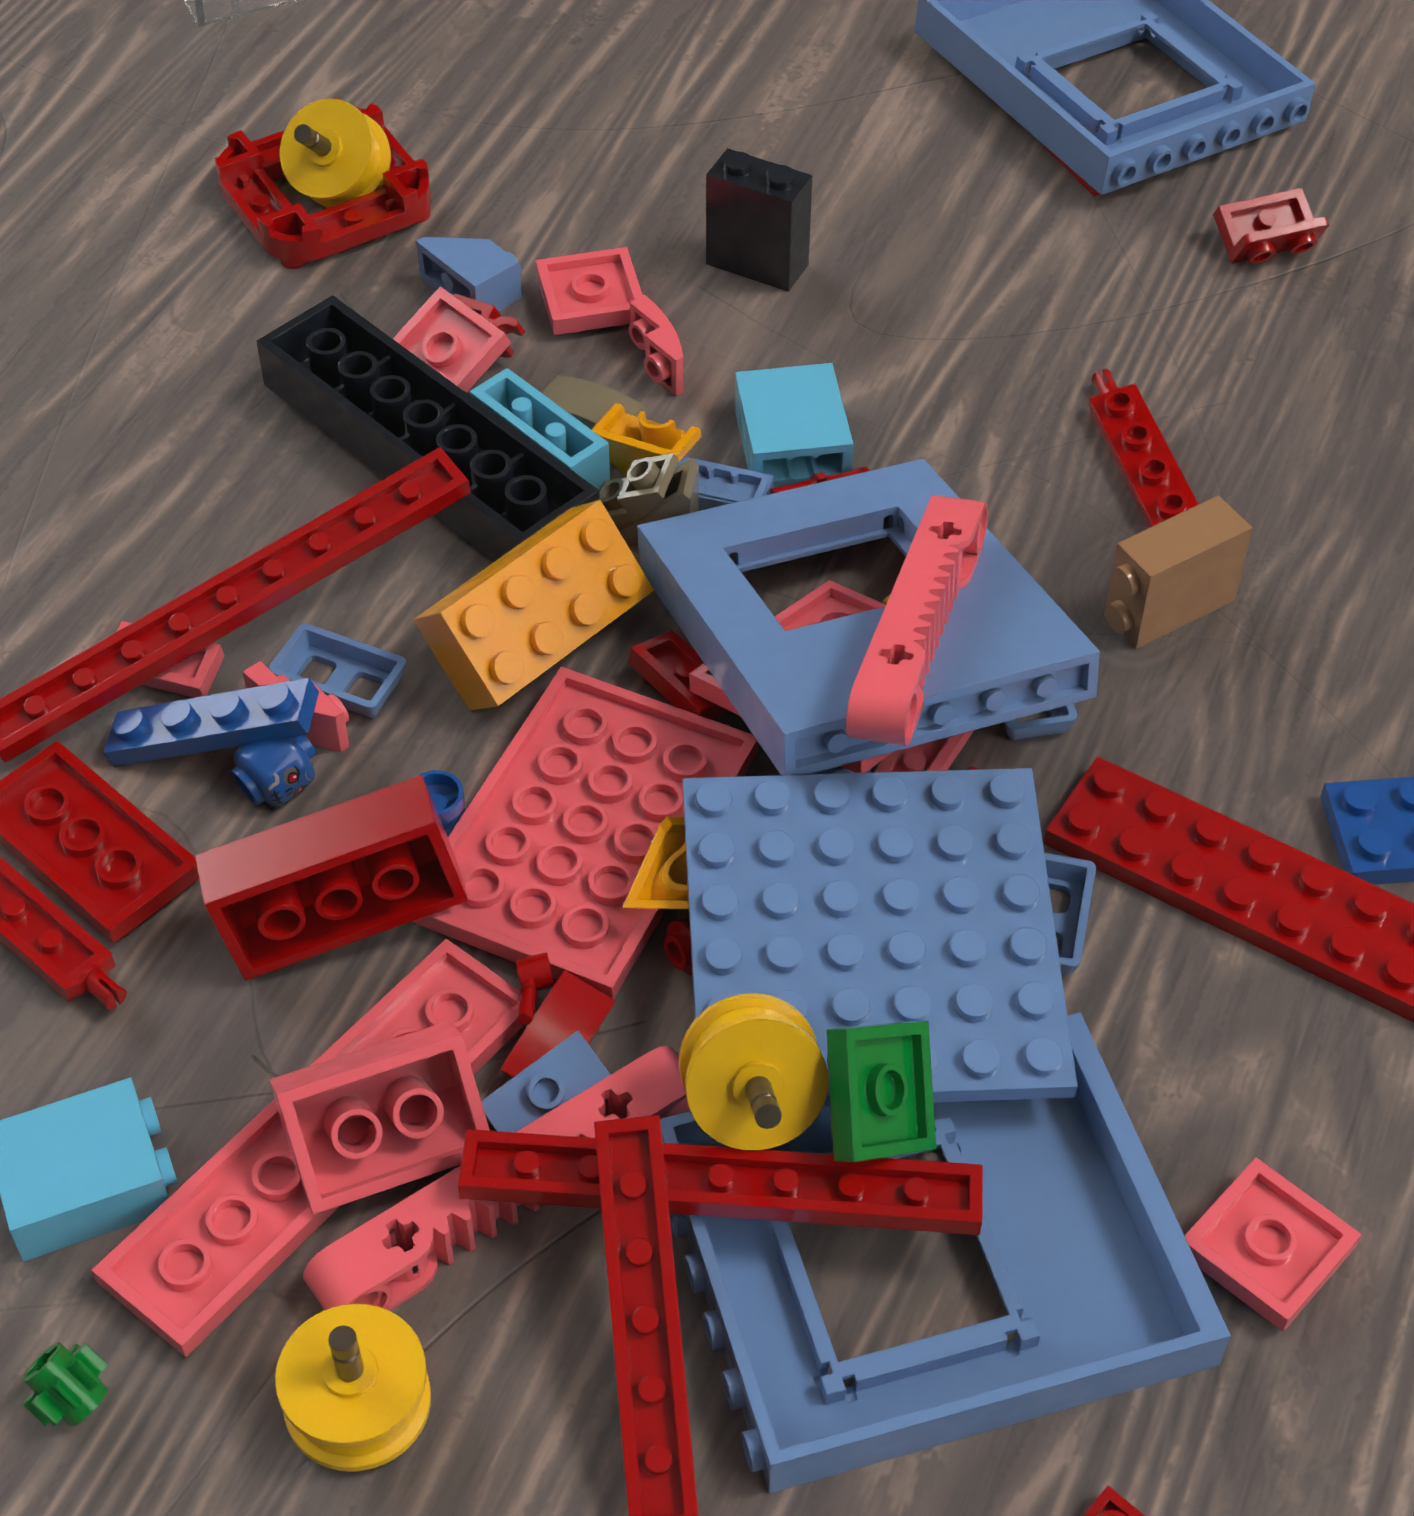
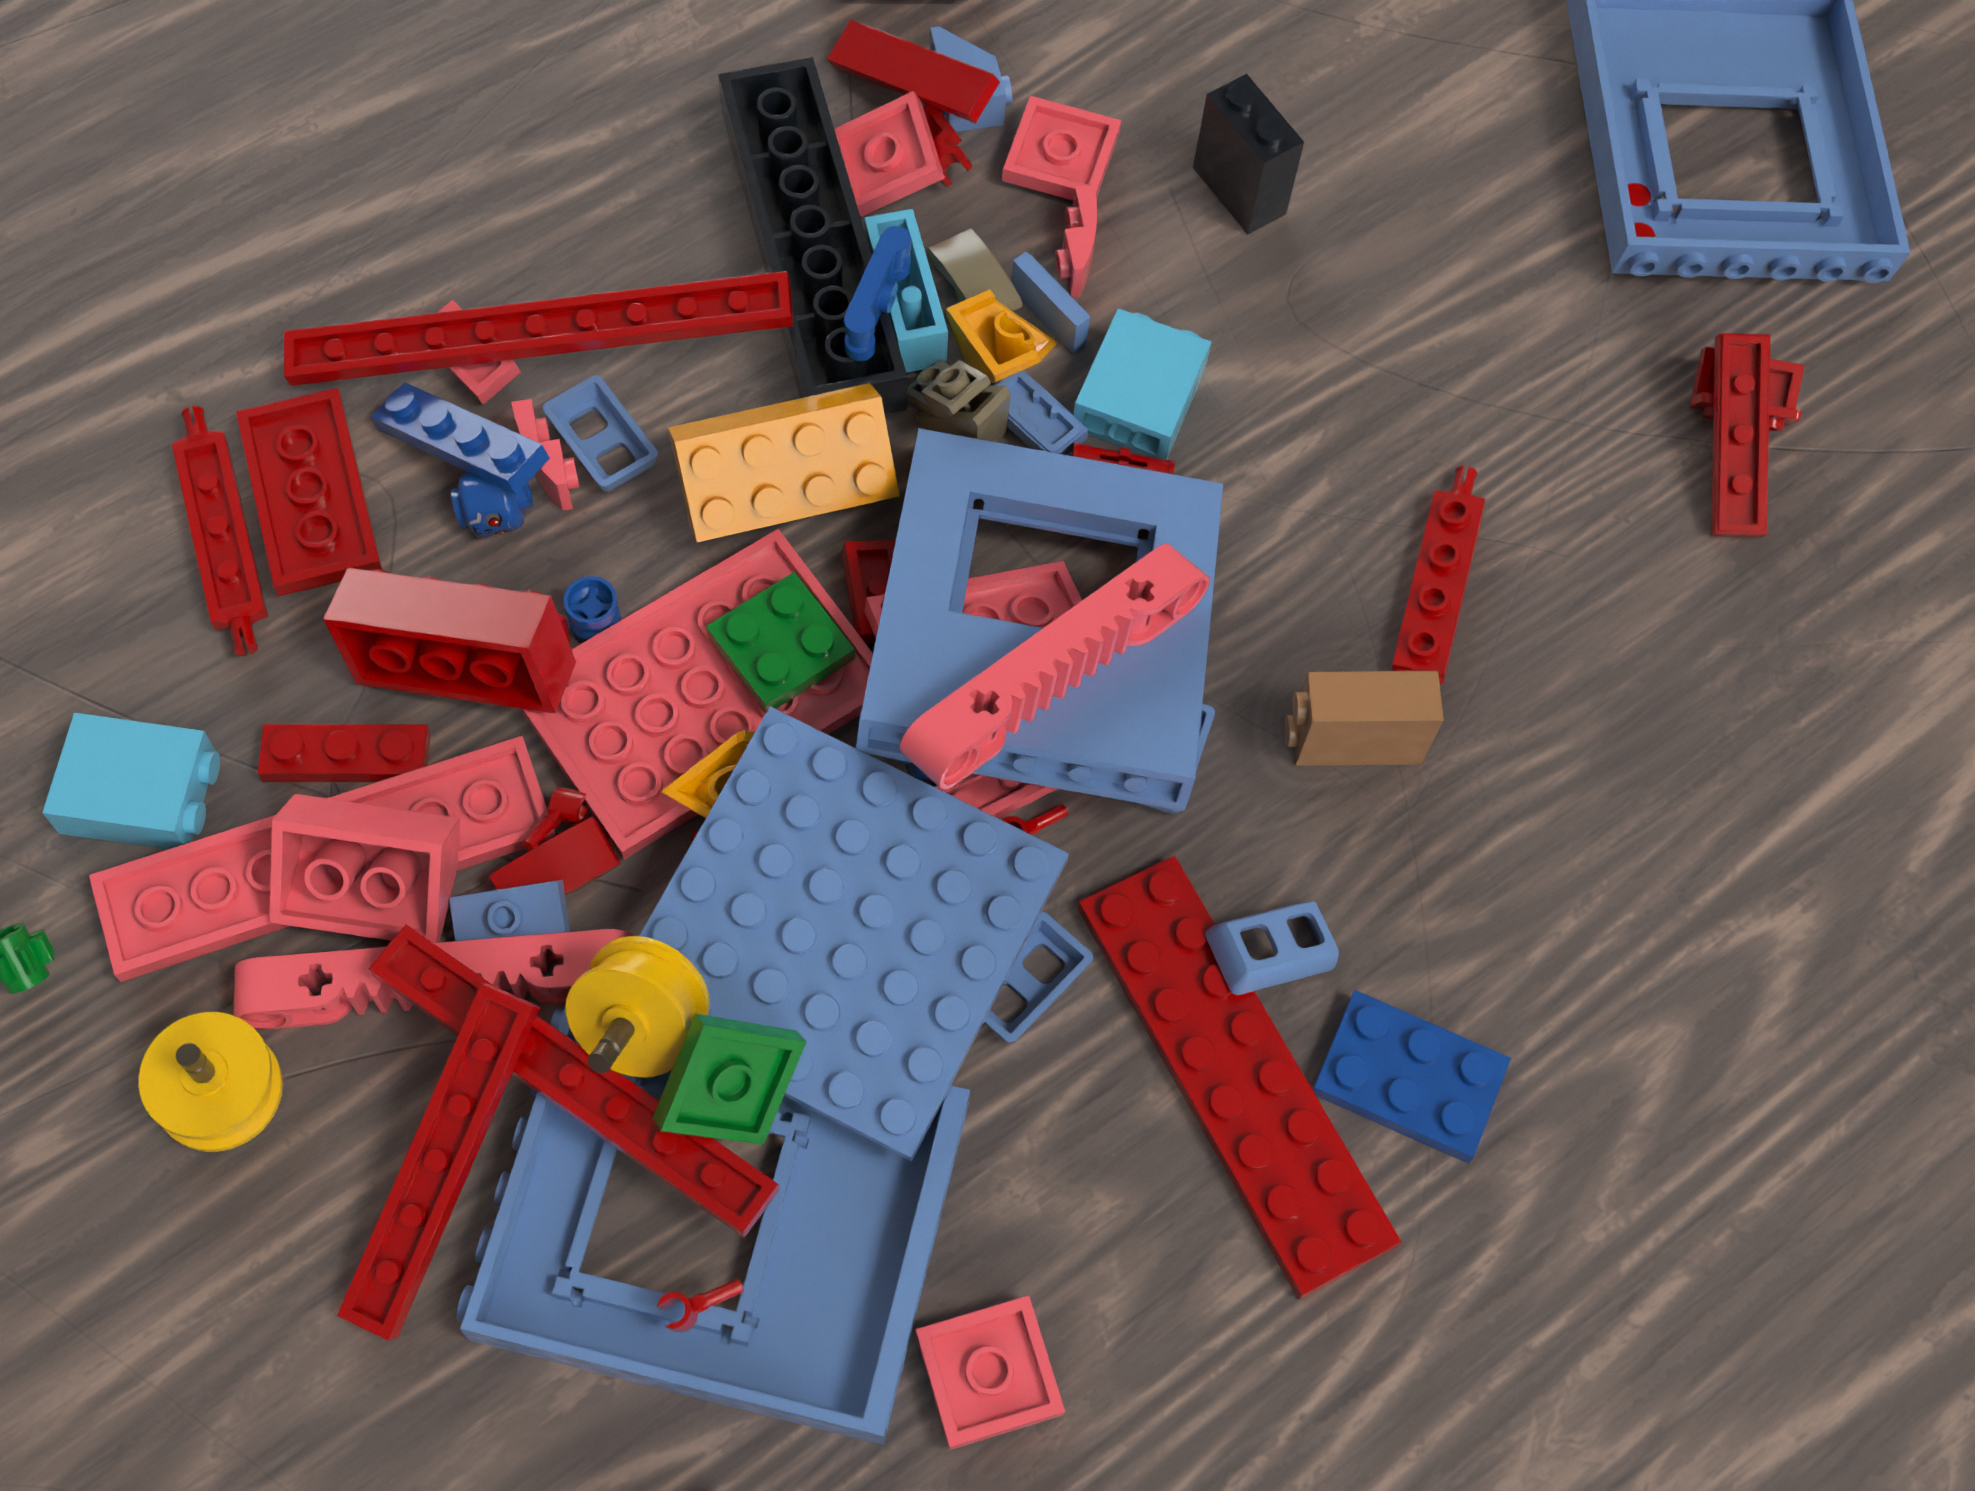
camera: 25 degrees right, 15 degrees up
(270, 1044) = (341, 752): none -> red plate
(416, 276) = (910, 67): none -> red tile
(531, 434) = (876, 291): none -> blue plate
(634, 749) = (780, 642): none -> green plate
(671, 398) = (1050, 302): none -> medium blue tile
(981, 1312) = (698, 1303): none -> red hand
(1247, 758) = (1290, 960): none -> medium blue piece
(1295, 253) = (1740, 435): none -> red tile

